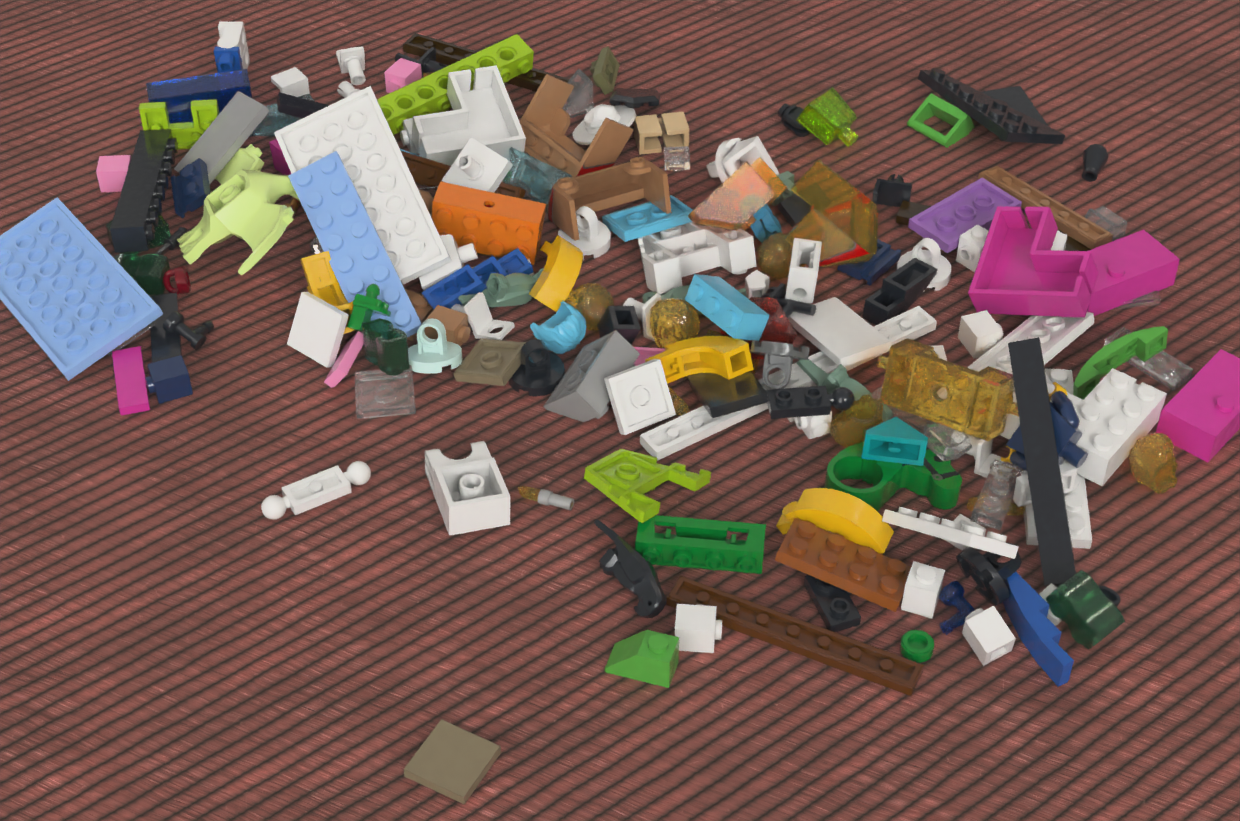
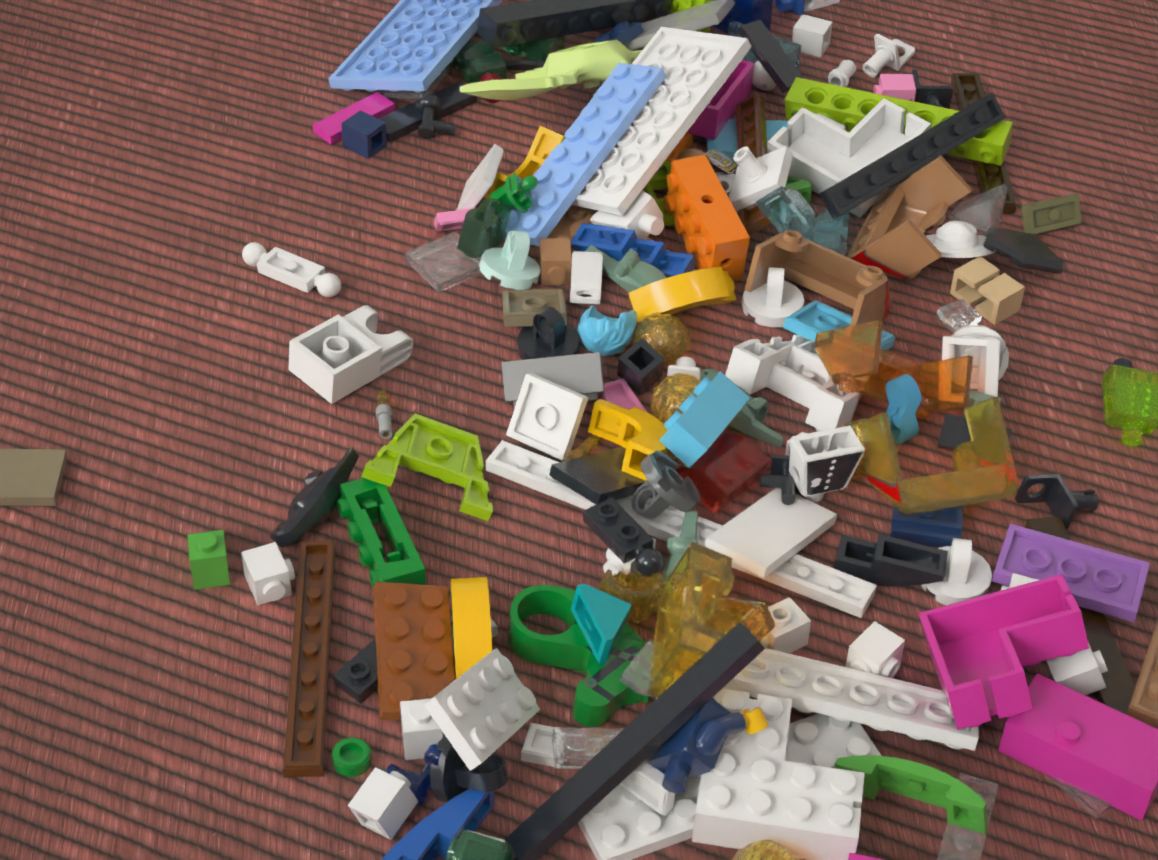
camera: 60 degrees right, 0 degrees up
(516, 93) = (911, 156): none -> black tile

